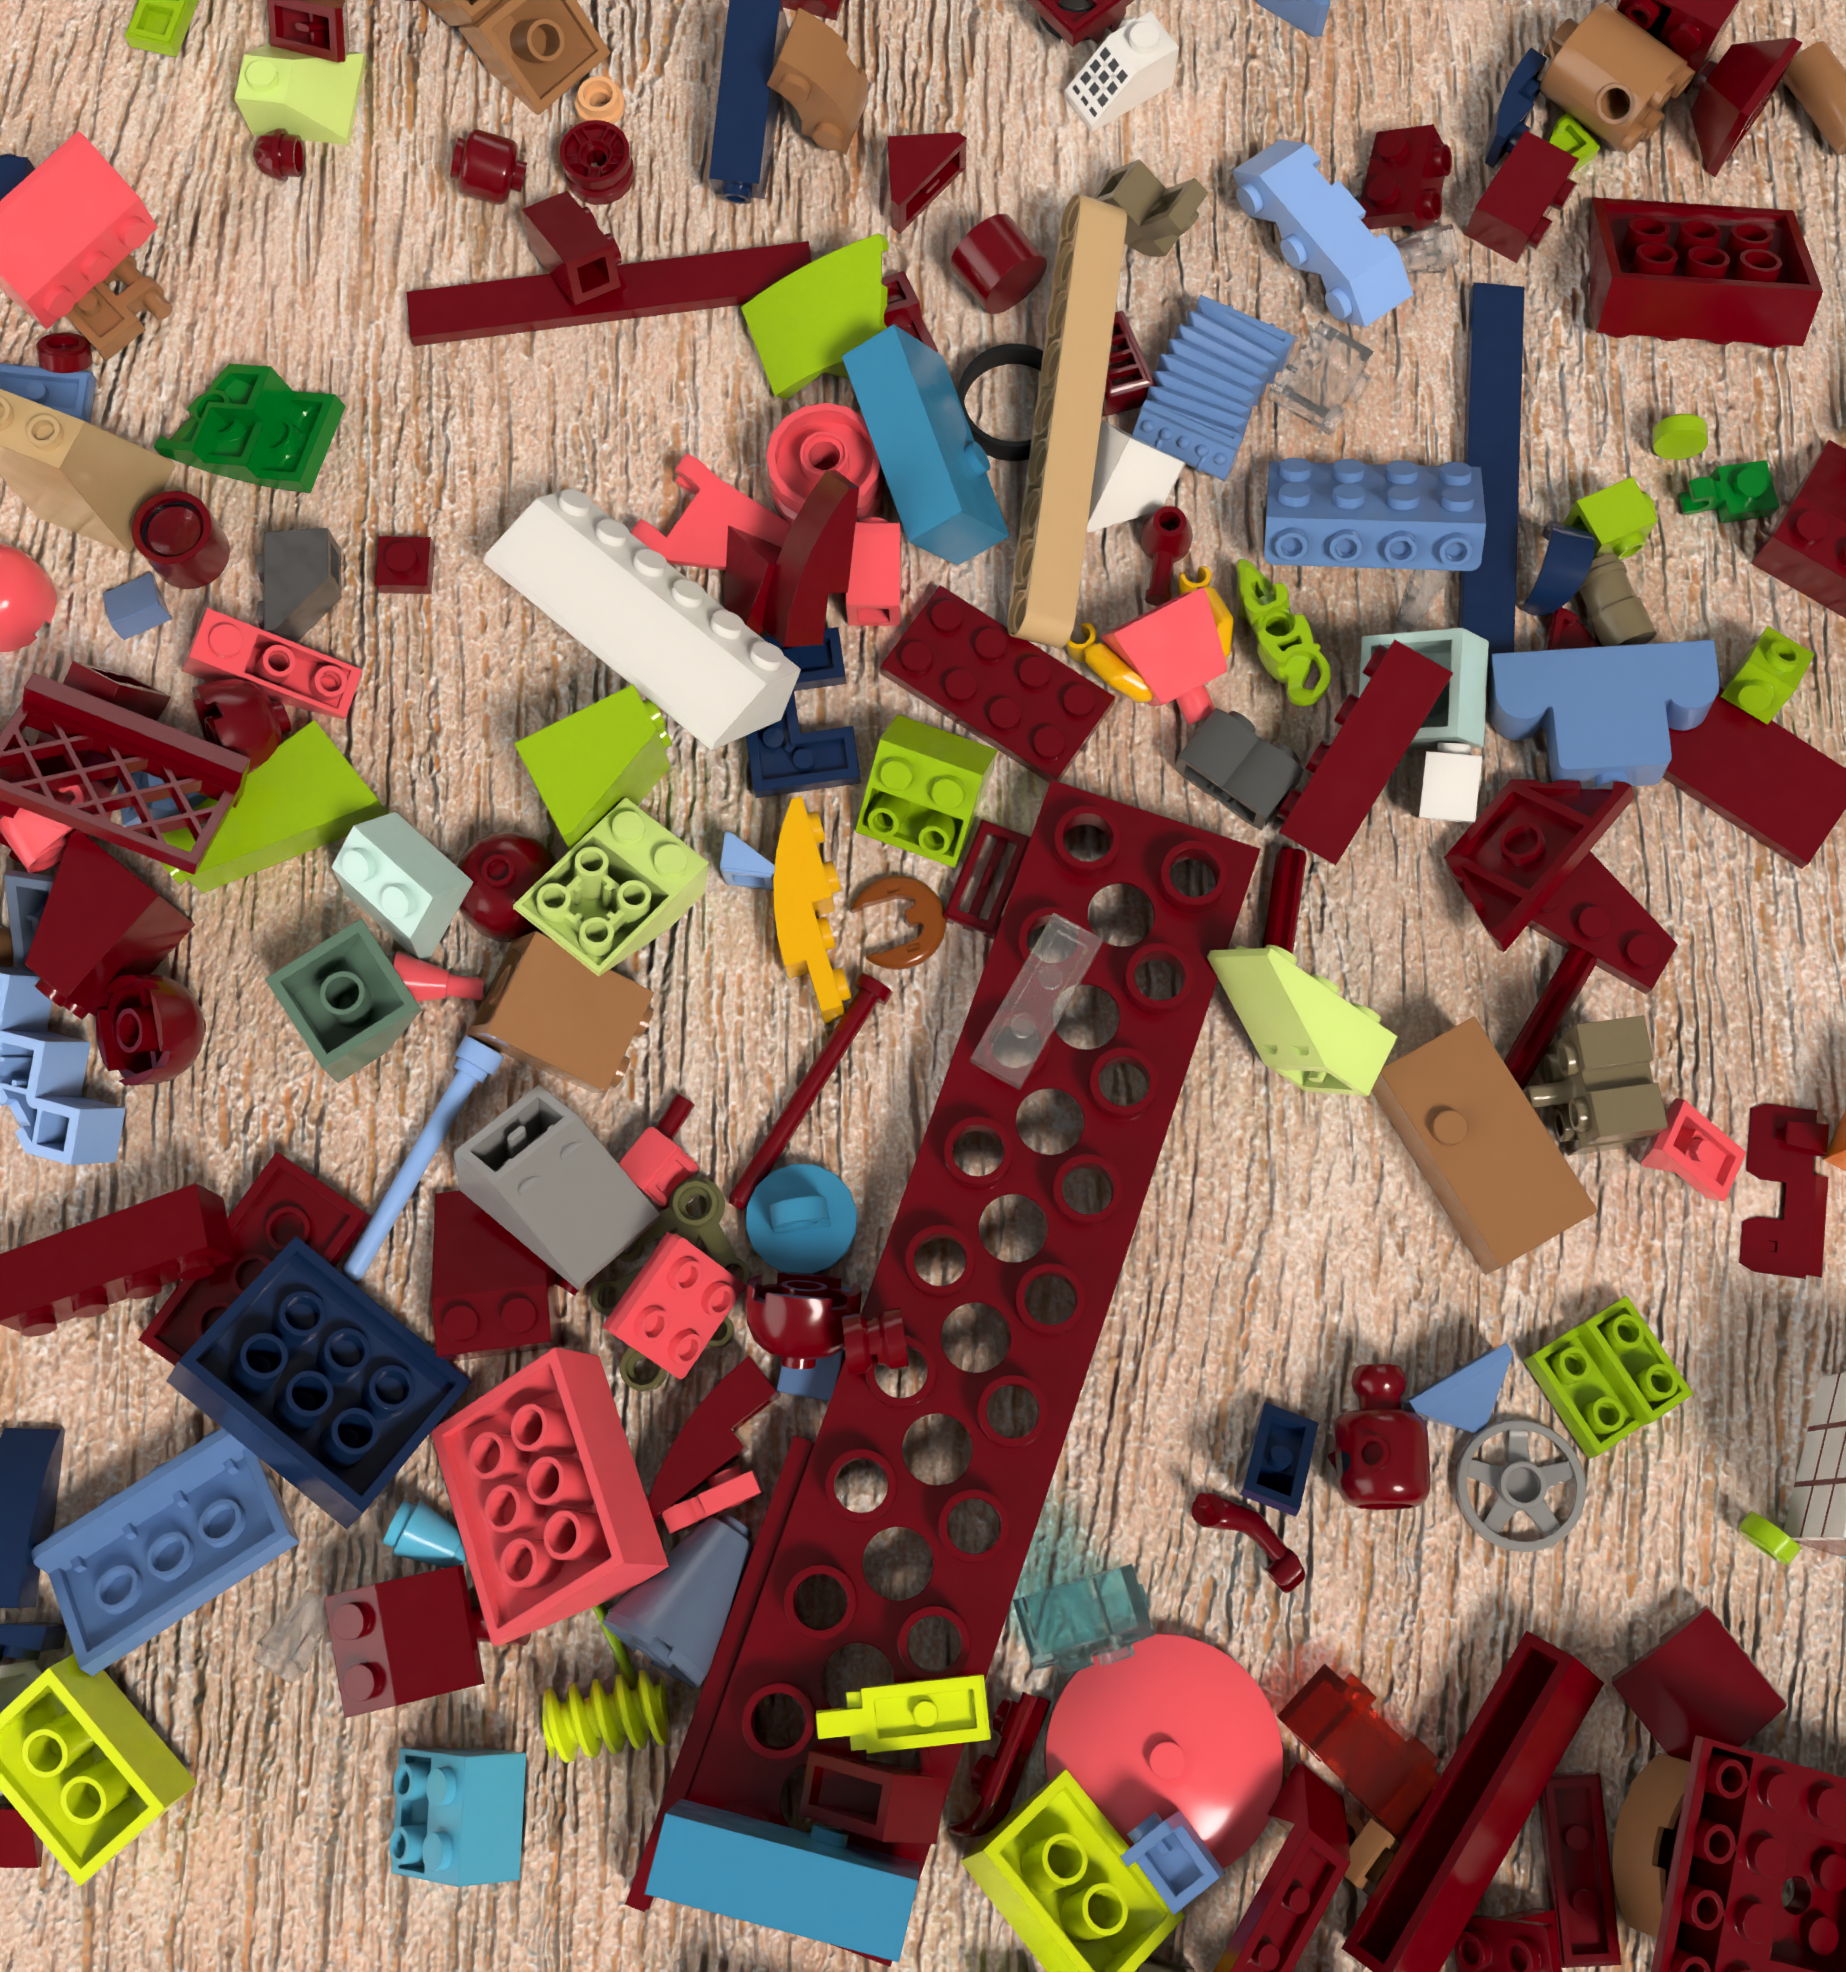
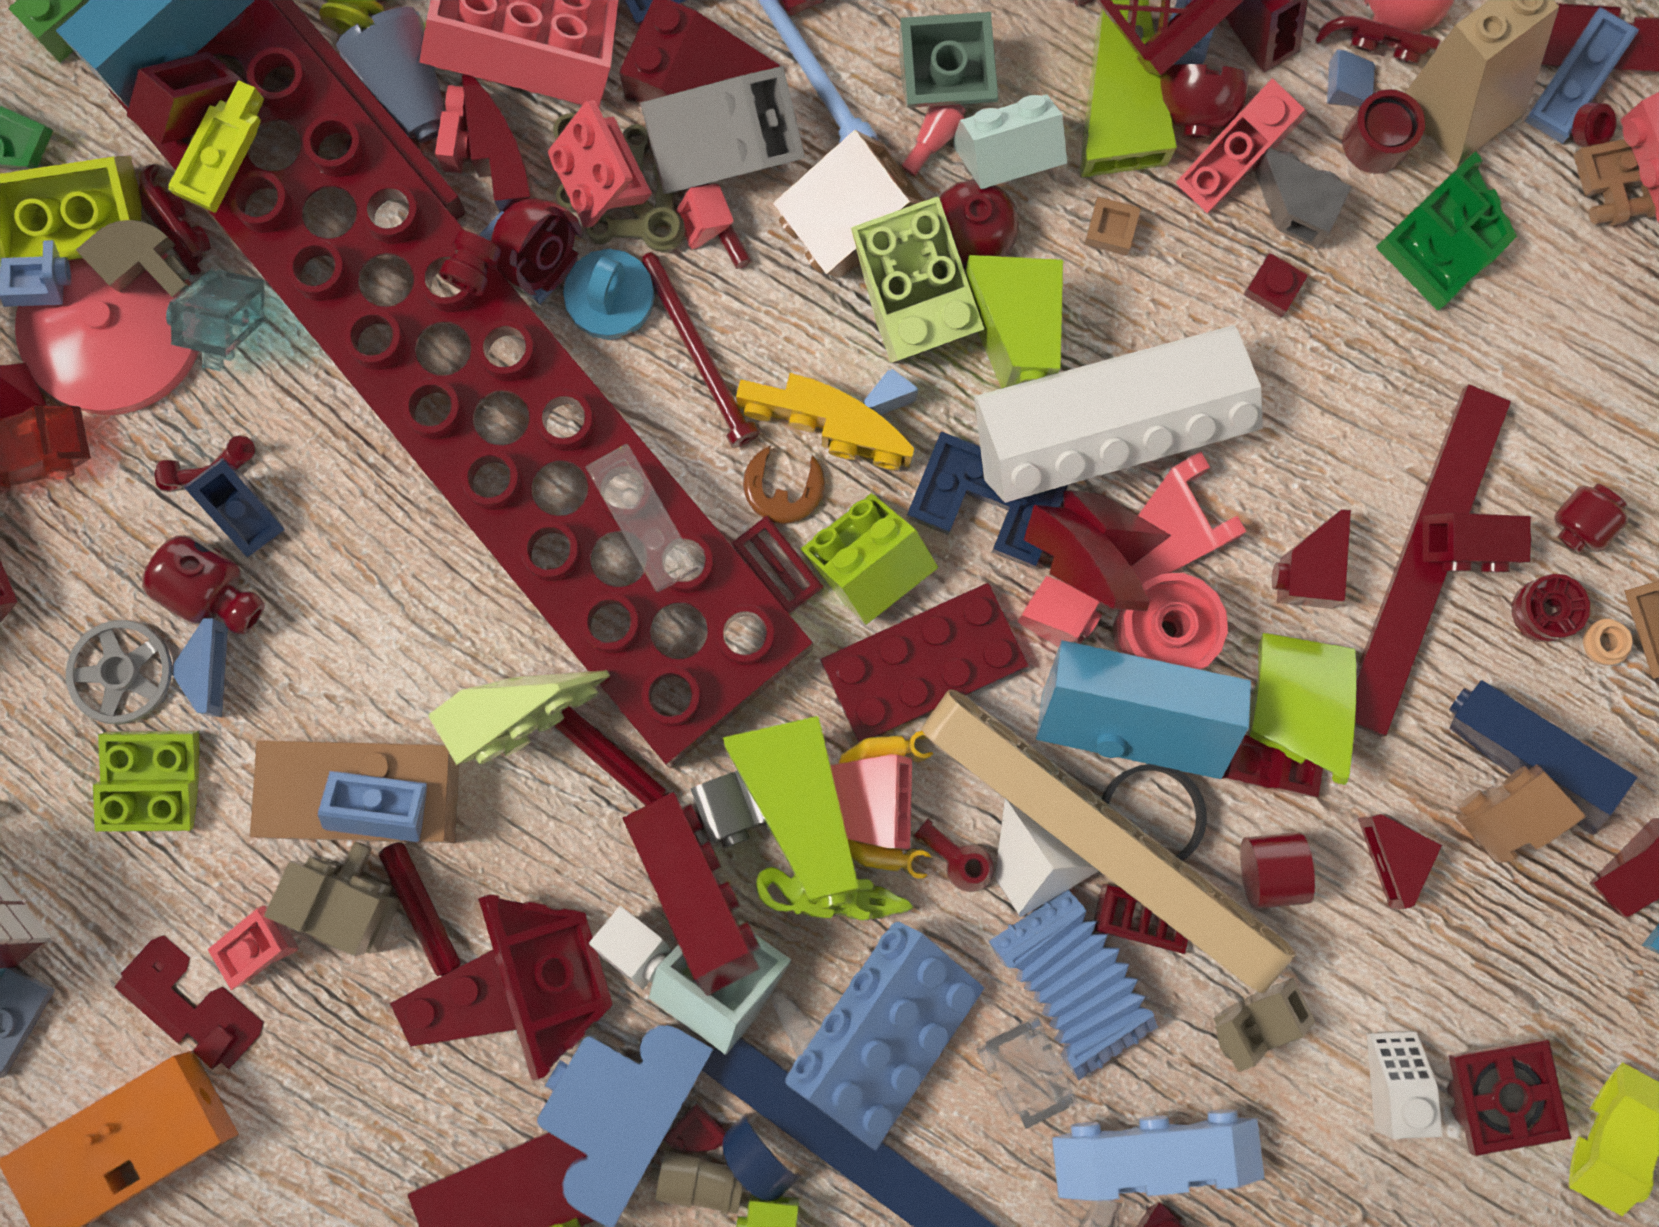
camera: 115 degrees right, 5 degrees up
(73, 610) = (1369, 34): none -> dark red piece
(431, 748) = (1112, 226): none -> medium nougat plate
(677, 379) = (1316, 567): none -> dark red slope
(1077, 1763) = (128, 249): none -> dark tan brick
(1215, 696) = (796, 794): none -> lime slope
(1487, 1100) = (373, 806): none -> medium blue slope

